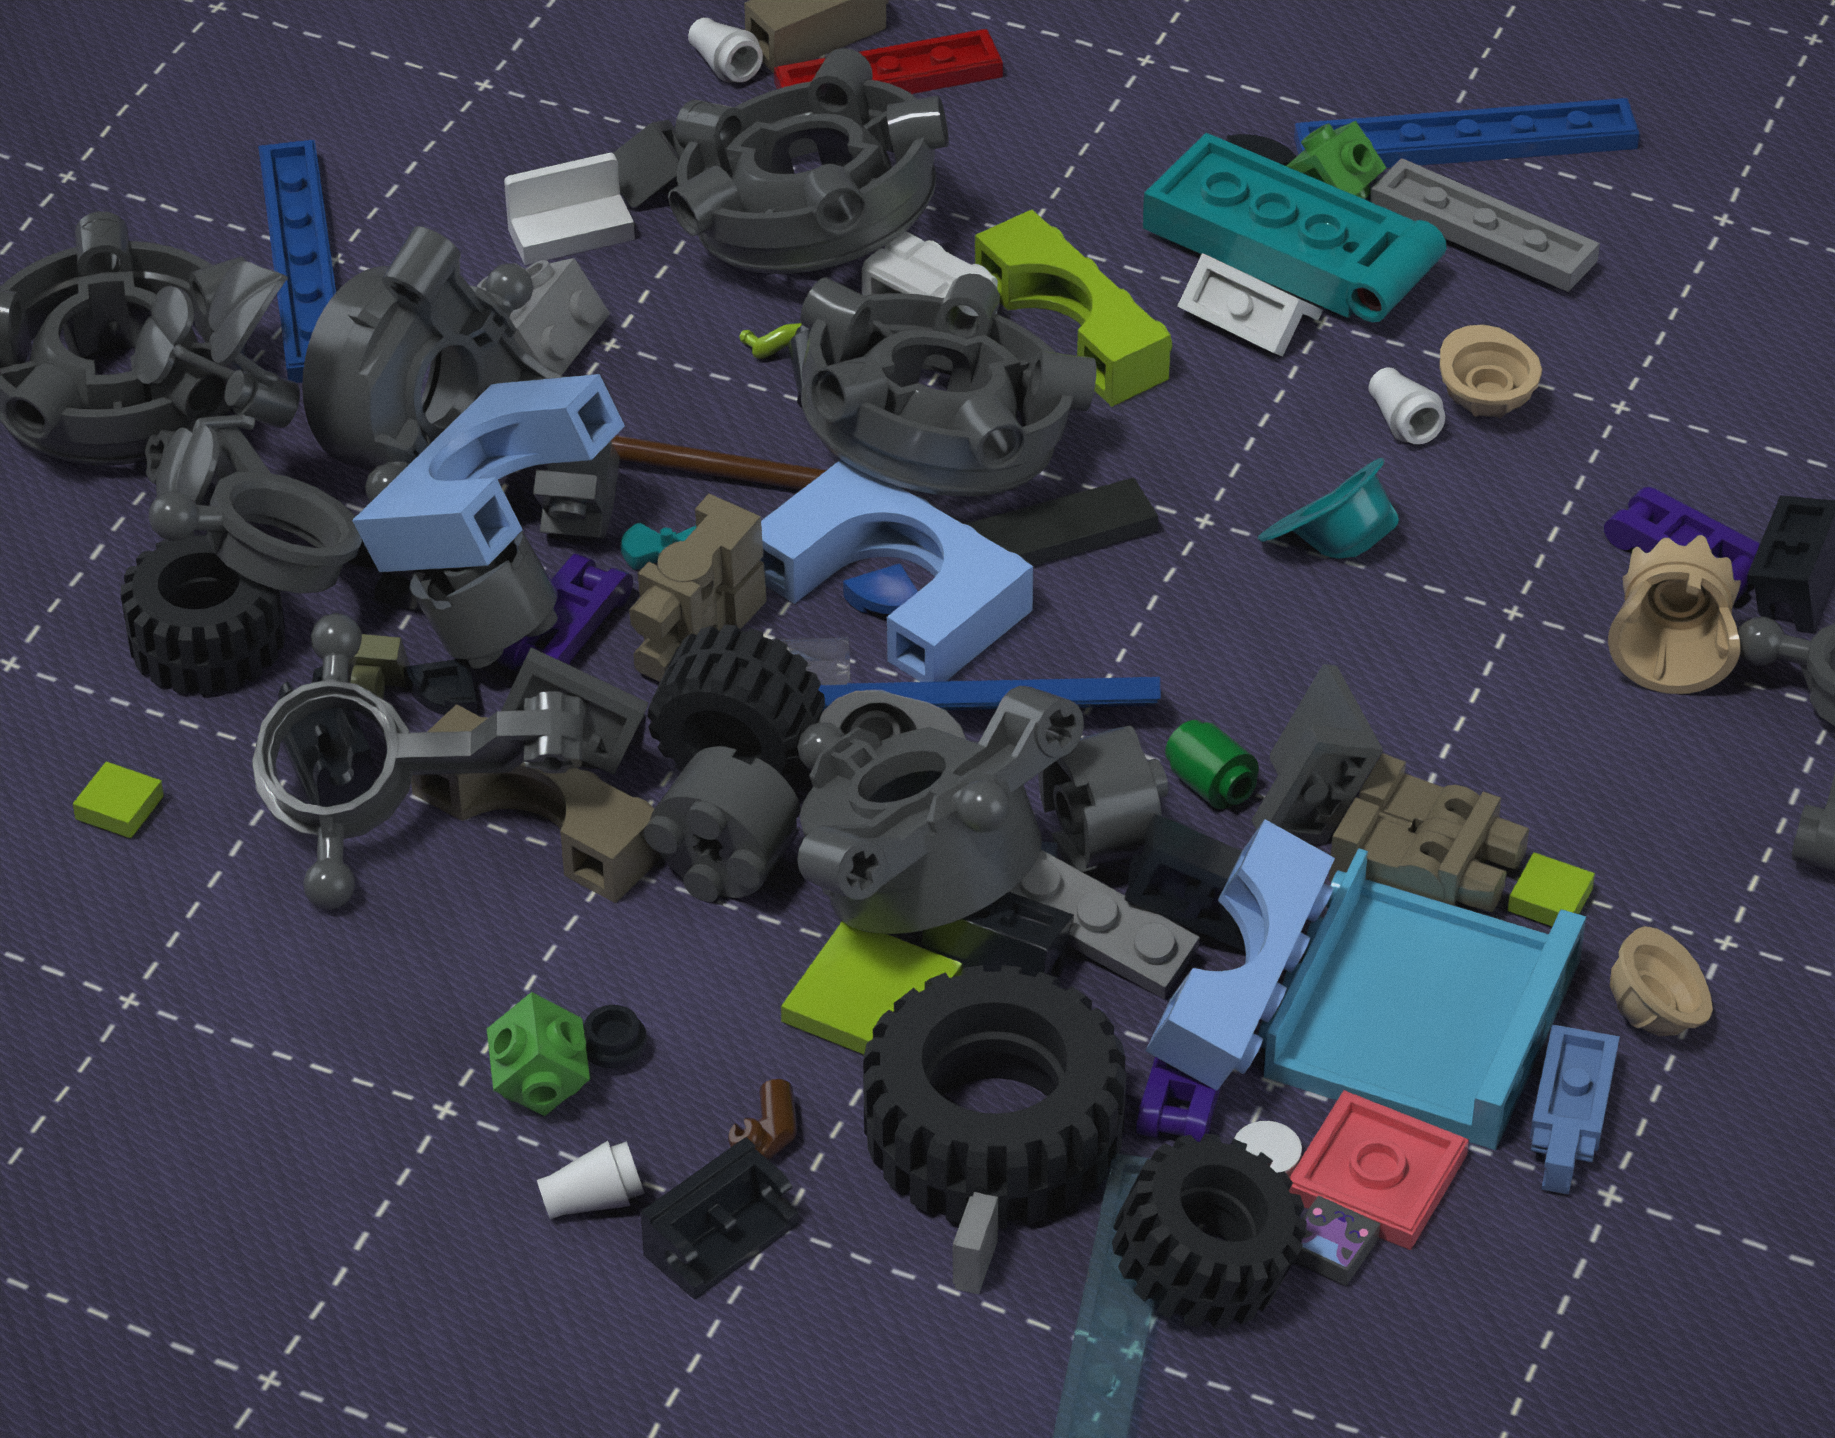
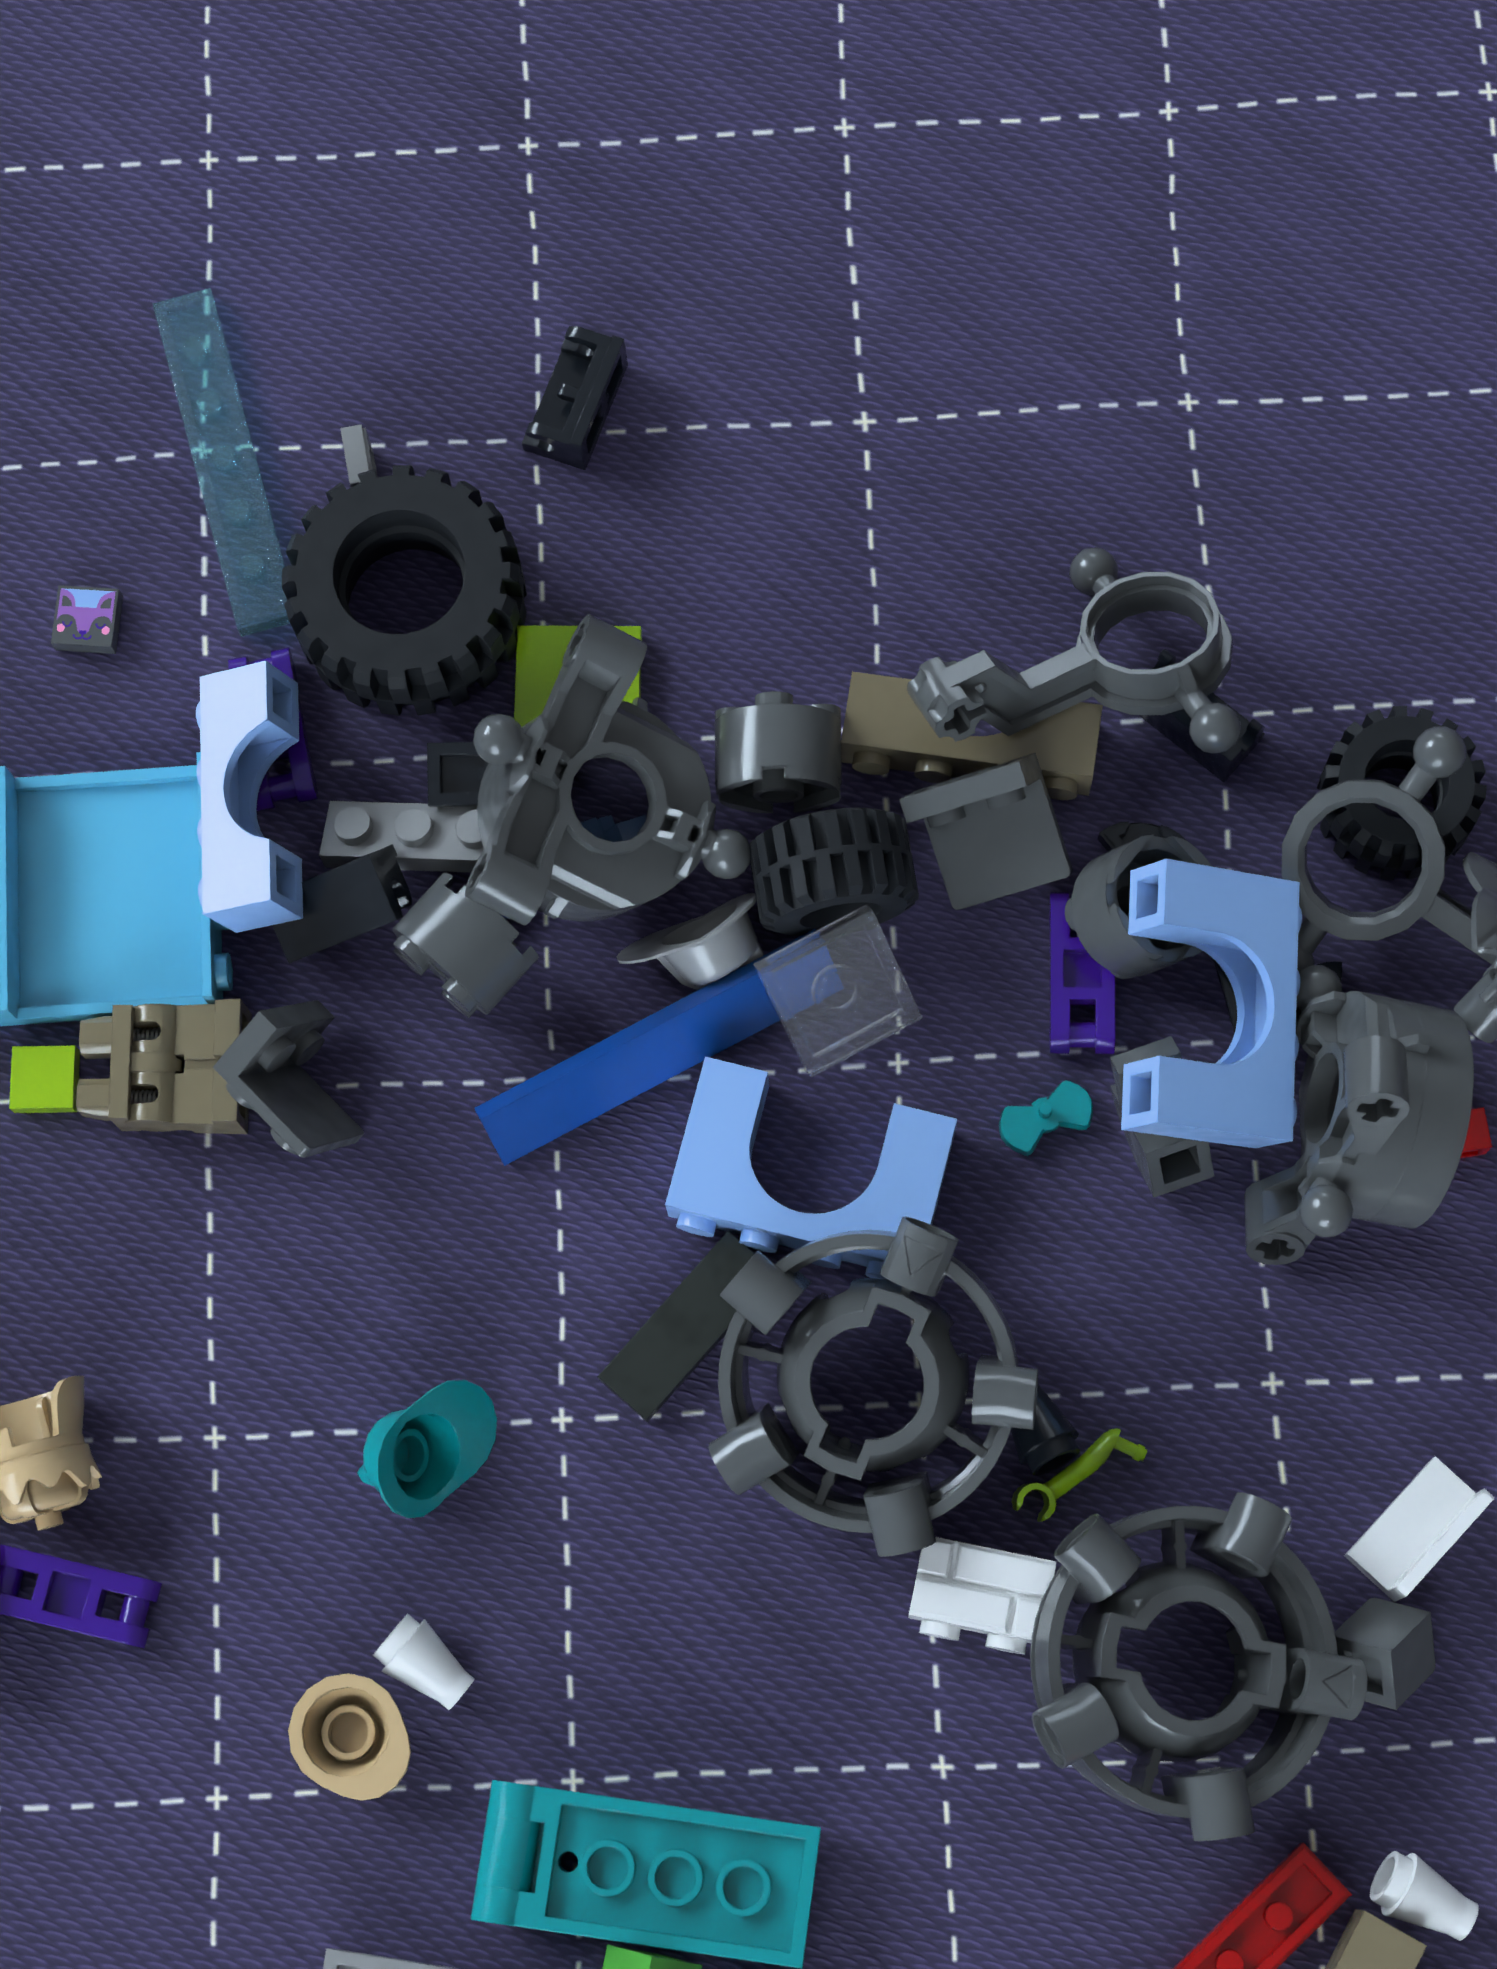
camera: 160 degrees right, 30 degrees up
(118, 799) = (1338, 582): lime tile -> none
(379, 663) = (1216, 818): olive tile -> none
(538, 1054) = (801, 463): bright green brick -> none
(559, 315) = (1365, 1343): light grey bracket -> none
(593, 1182) = (691, 387): white cone -> none
(614, 1036) = (763, 535): black plate -> none
(699, 583) = (963, 998): dark tan hips -> none
(714, 463) = (1199, 1207): reddish brown piece -> none
(778, 1120) = (585, 509): reddish brown arm -> none
(879, 590) = (807, 1154): blue tile -> none
(1048, 273) = (899, 1684): lime arch -> none
(1185, 1266) = (134, 511): black tyre -> none
(1212, 763) = (400, 1071): green brick -> none
(1244, 305) = (648, 1749): white panel -> none
(1274, 1141) = (173, 677): white tile -> none
(1380, 1166) = (80, 709): coral tile -> none

